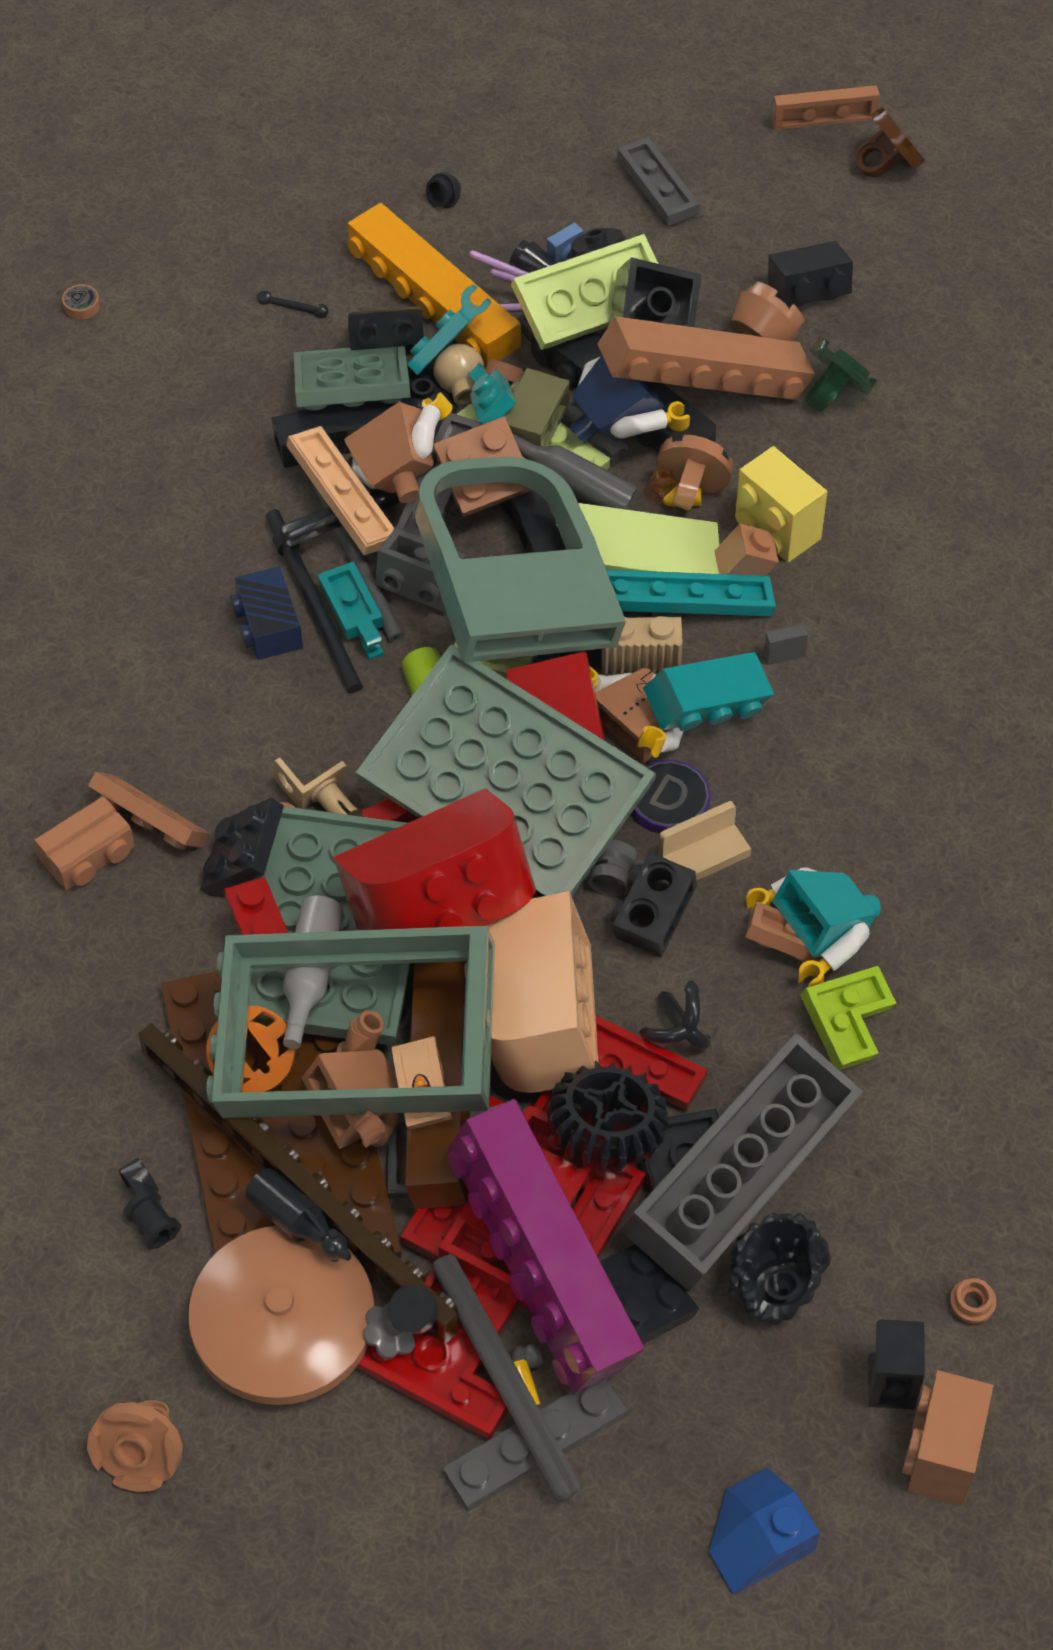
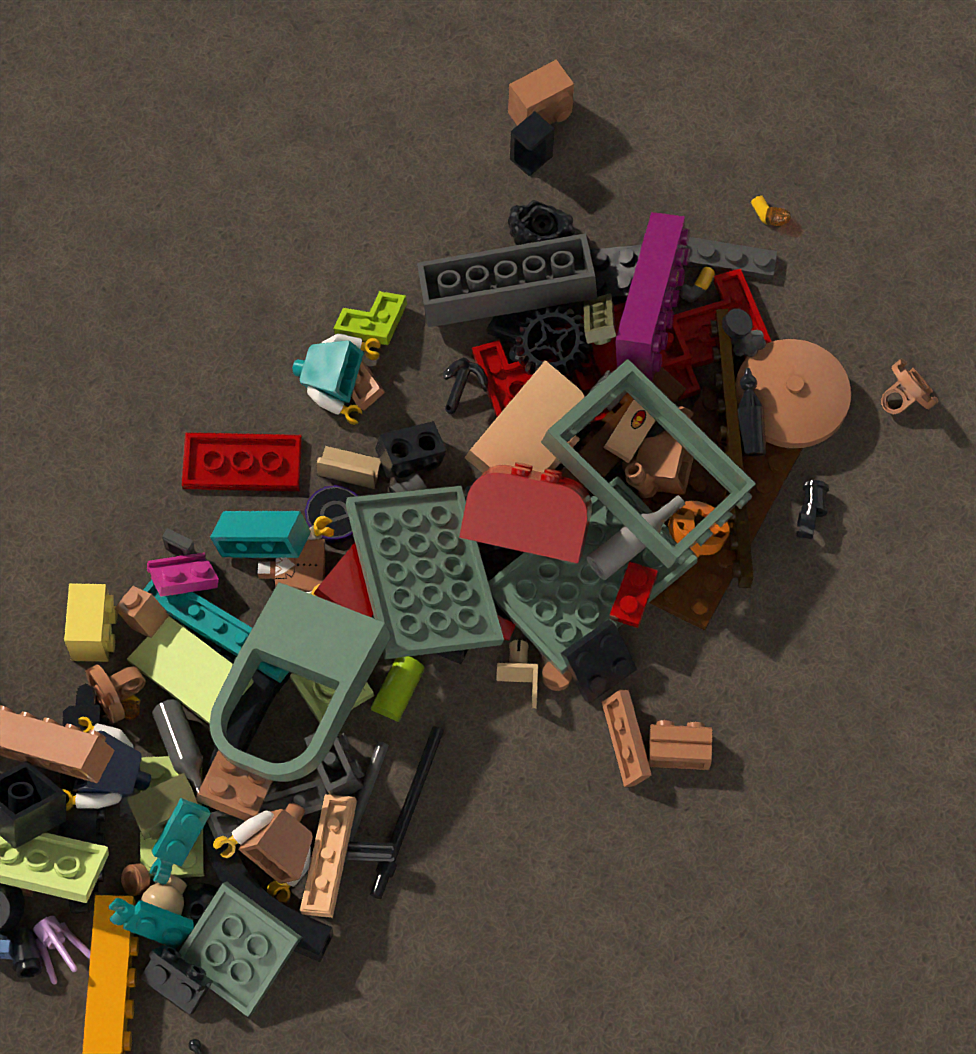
camera: 140 degrees left, 10 degrees up
(268, 613) = (445, 817): dark blue brick -> none
(353, 606) = (390, 782): teal plate -> none
(507, 1378) = (712, 282): dark grey axle -> none
(521, 1554) = (770, 215): none -> arm
(576, 1163) = (599, 319): none -> olive plate
(647, 644) = (246, 600): tan brick -> none
(746, 613) = (182, 574): none -> dark pink plate
(760, 1530) = (655, 140): blue slope -> none
(818, 774) = (242, 461): none -> red tile
(973, 1288) = (456, 149): nougat plate -> none

